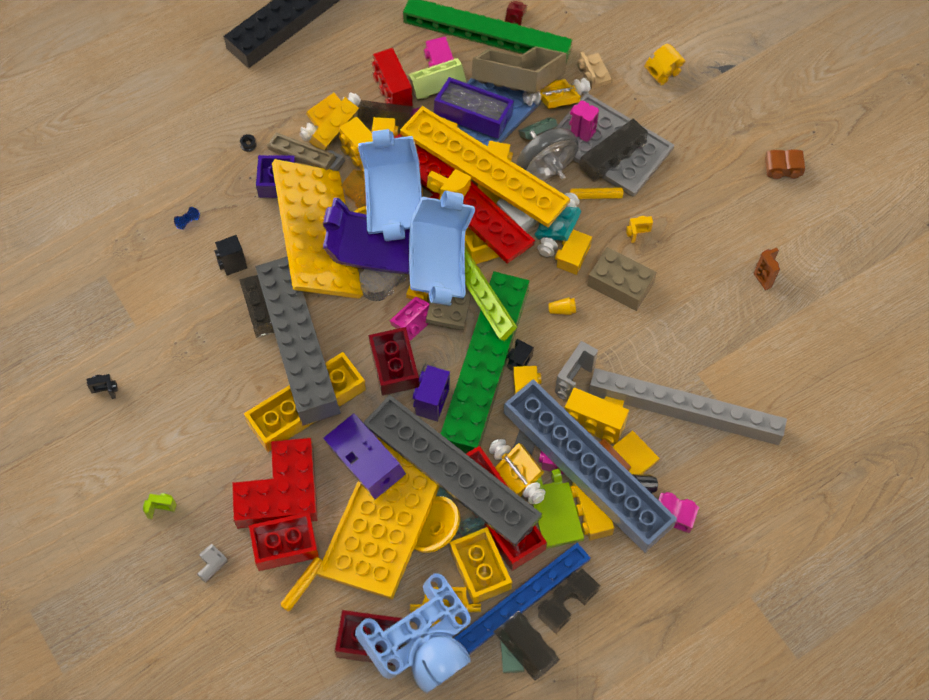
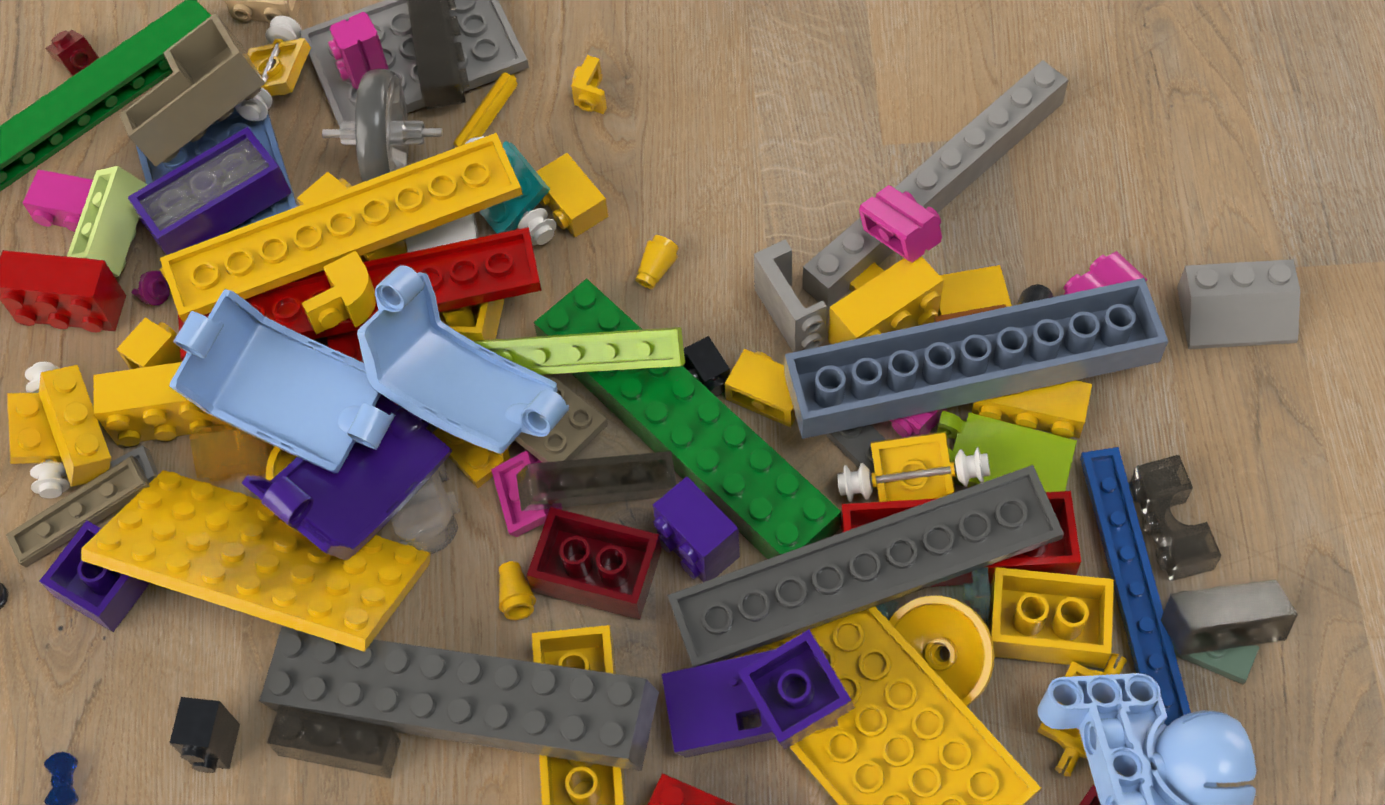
camera: 55 degrees left, 0 degrees up
(360, 339) = (515, 594): none -> yellow cone
(368, 464) = (796, 689): none -> dark purple brick
(371, 109) = (97, 346): clear smoke brick -> none
(429, 338) = (595, 480): none -> clear smoke brick
(538, 127) = (311, 121): sand green plate -> none
(621, 278) = (664, 154): dark tan brick -> none
(637, 395) = (901, 223): none -> dark pink brick
(708, 580) = (1240, 304): none -> light grey slope

